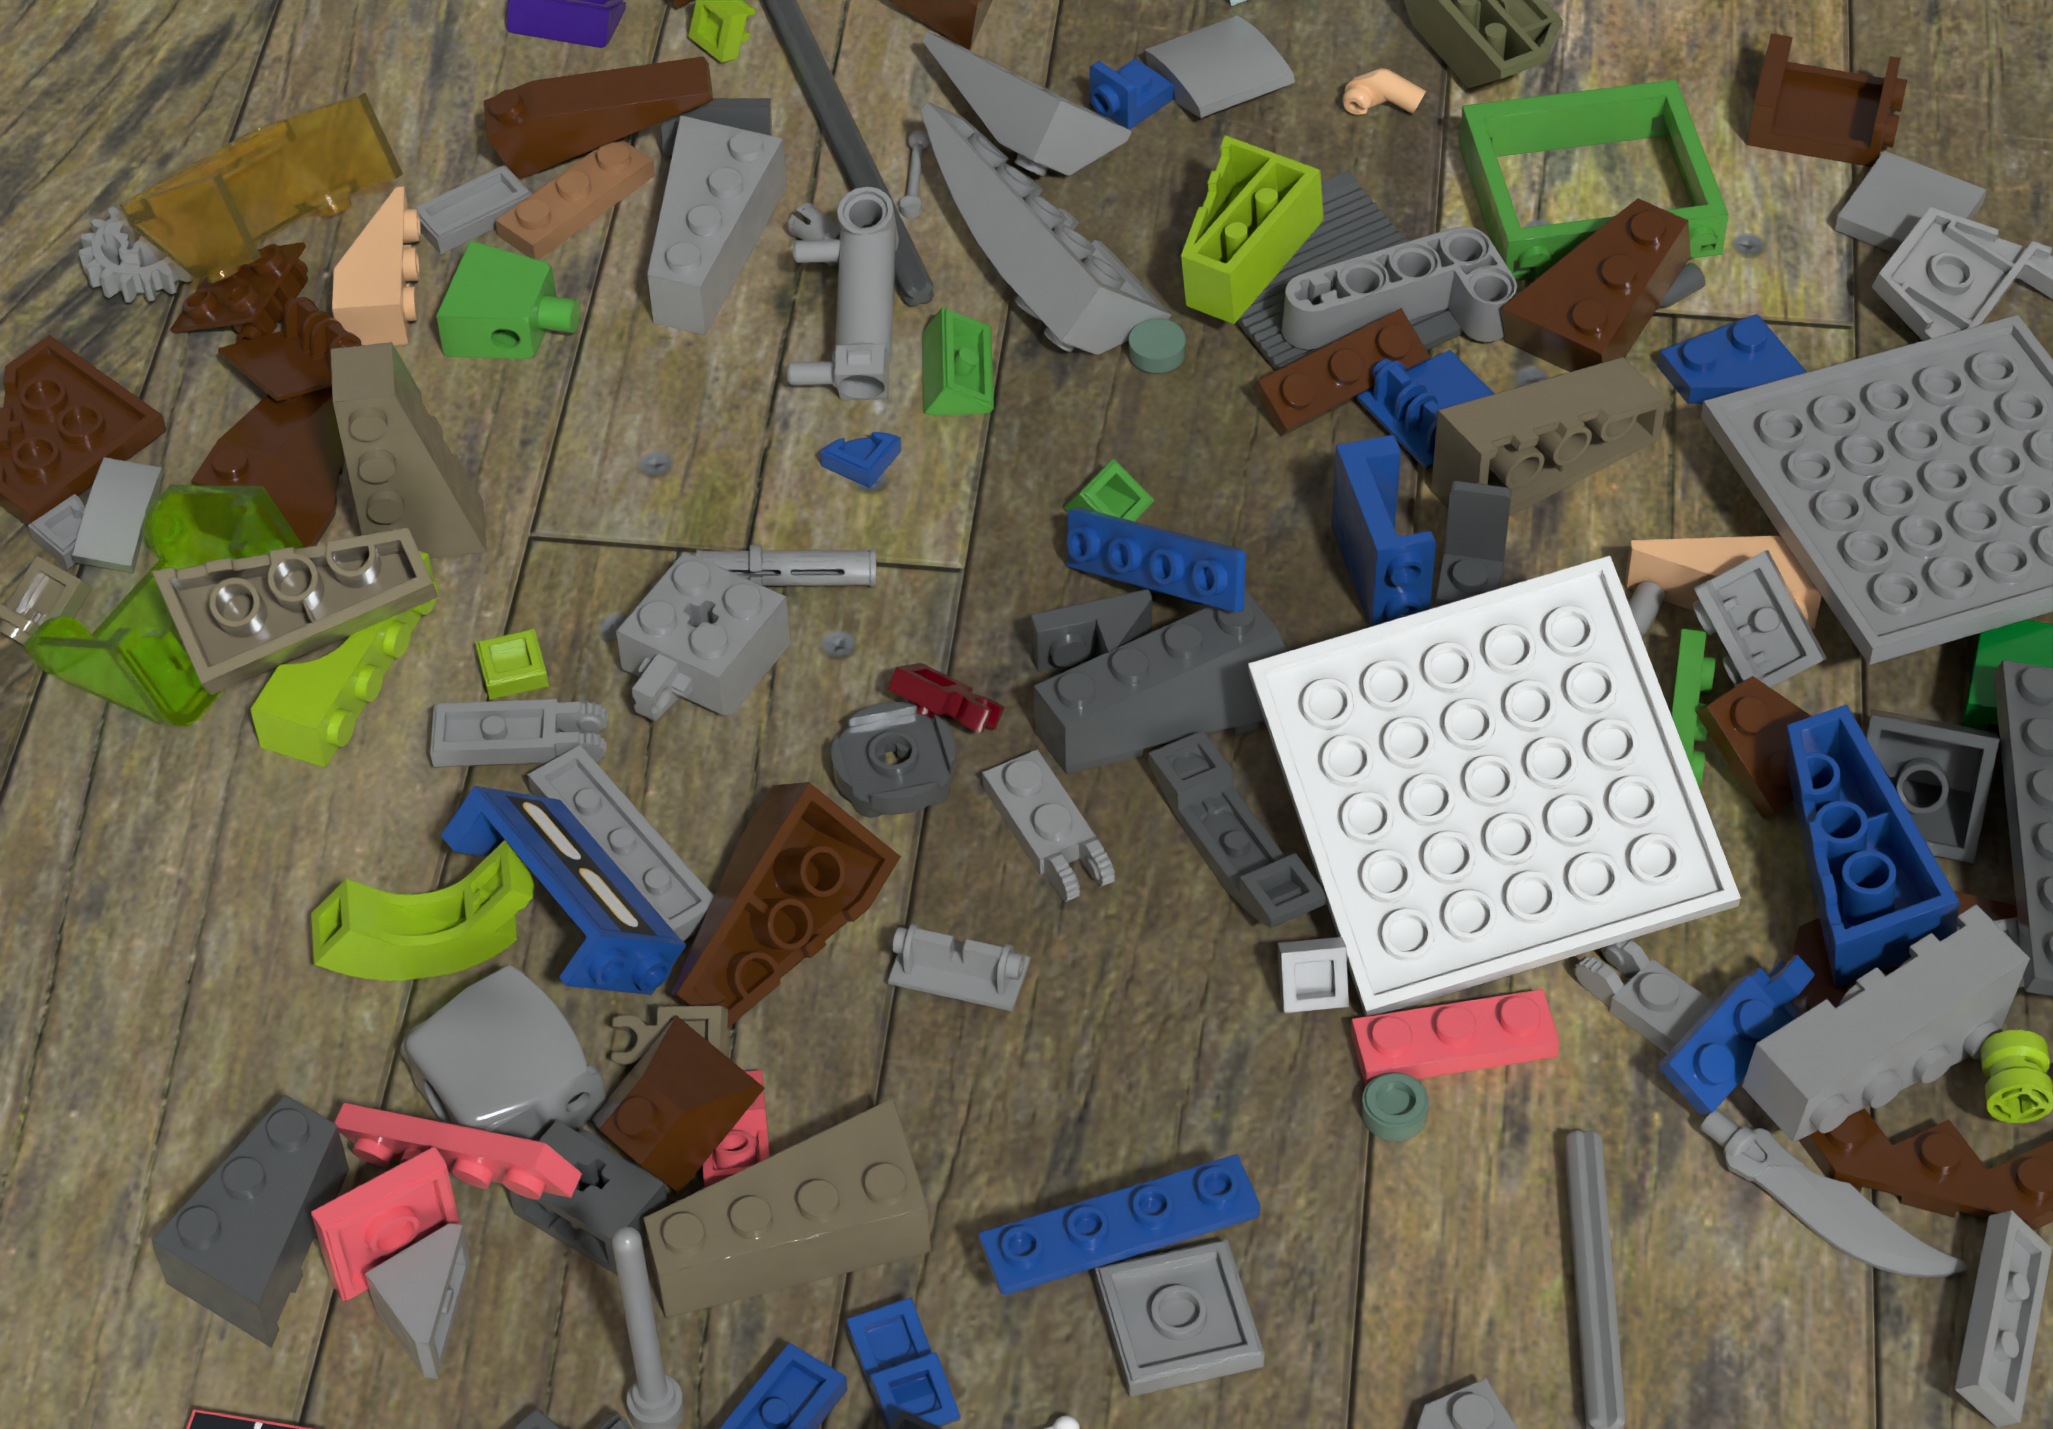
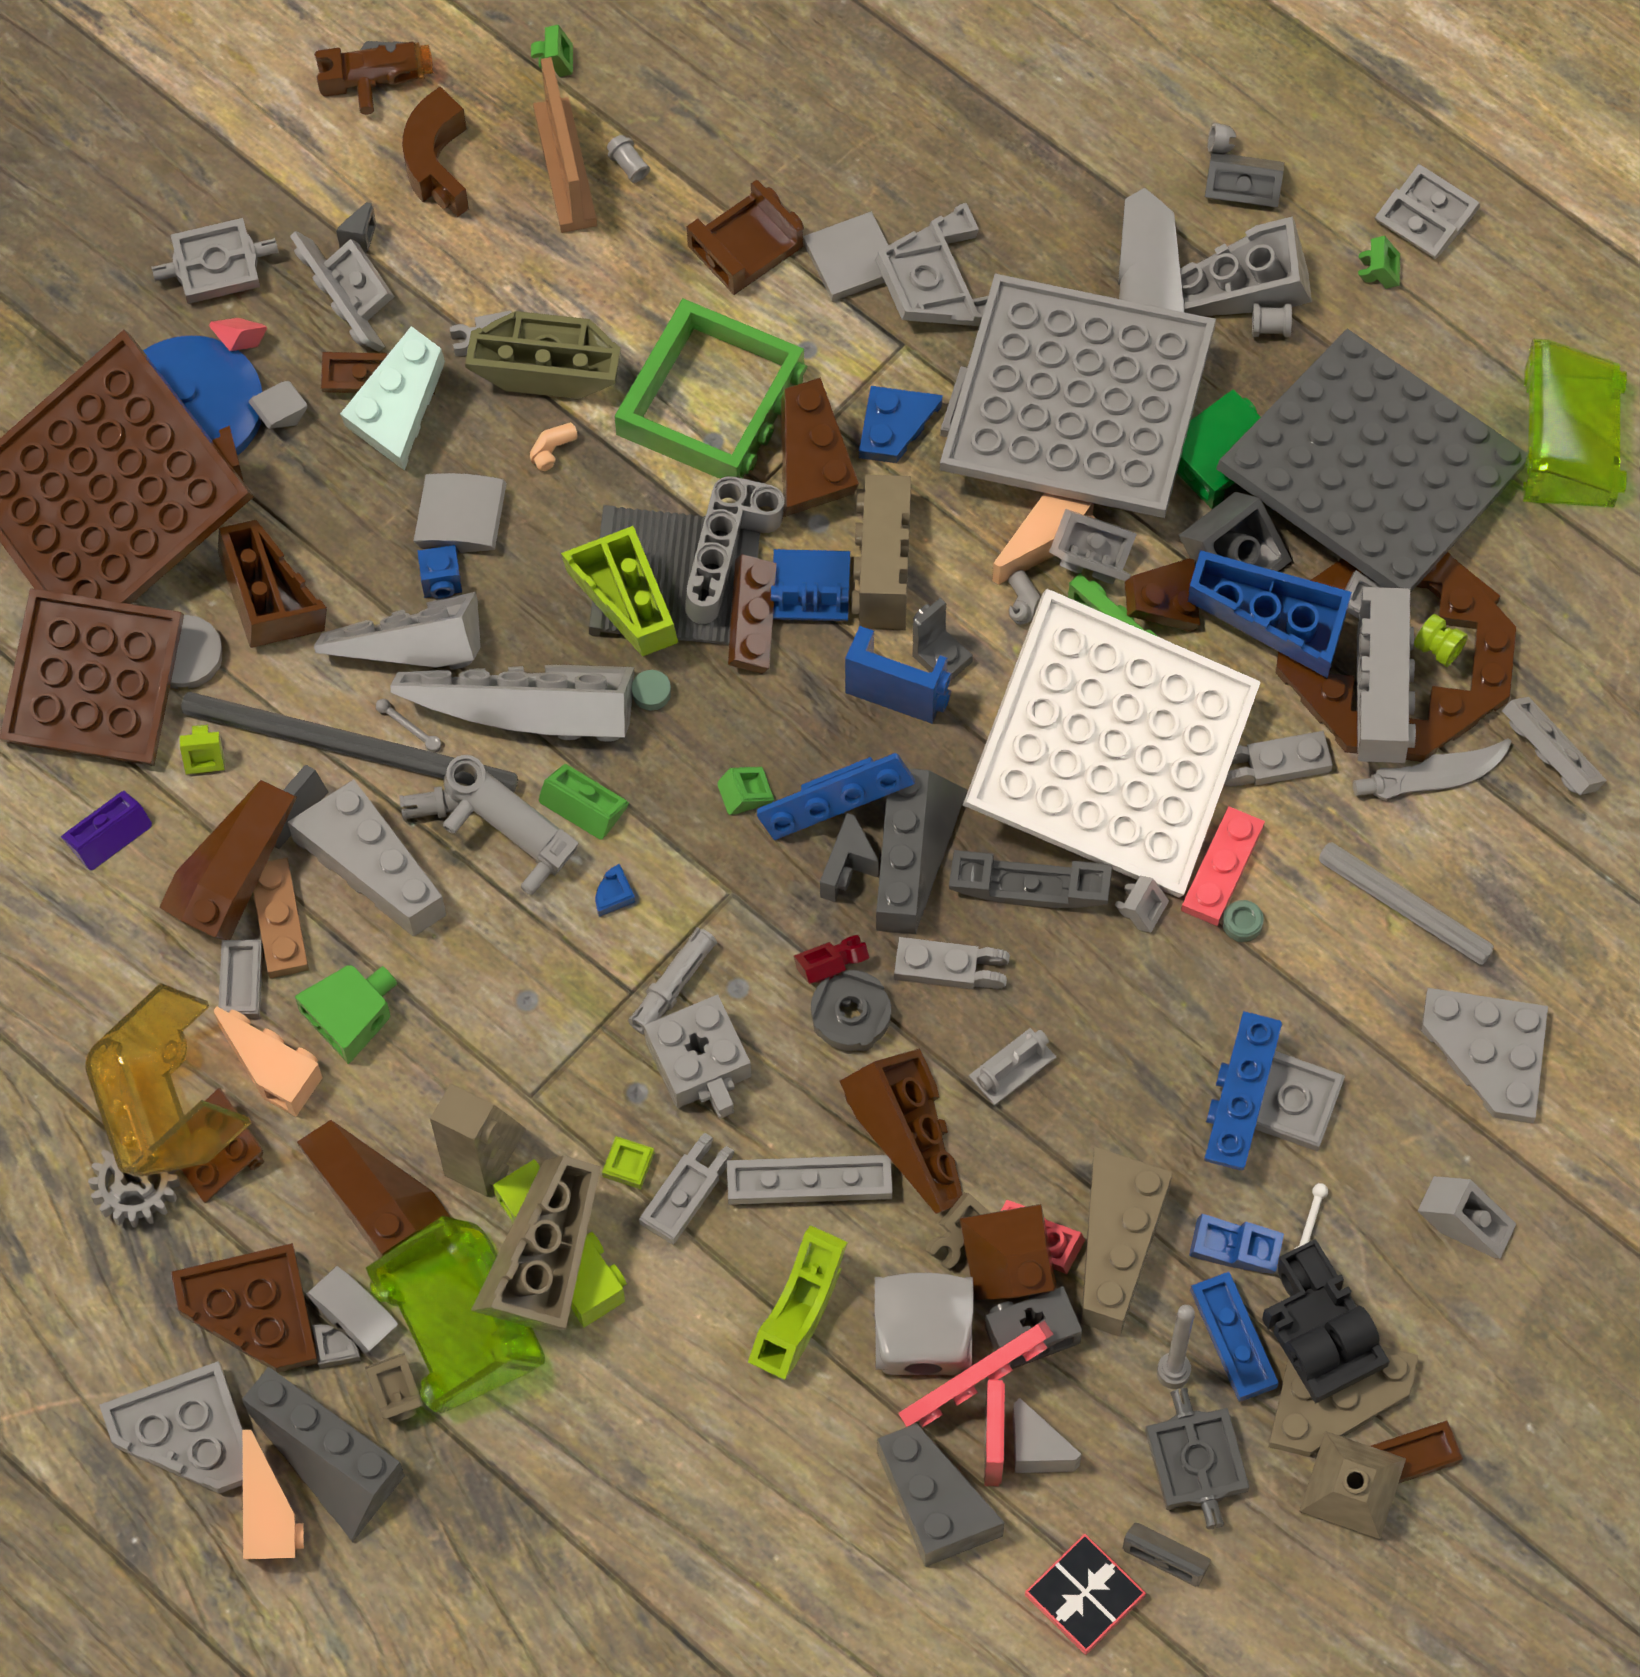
camera: 55 degrees left, 15 degrees up
(294, 359) = (305, 1143): reddish brown hinge -> none
(626, 937) = (838, 1212): blue panel -> none
(1721, 1043) = (1326, 740): blue hinge -> none

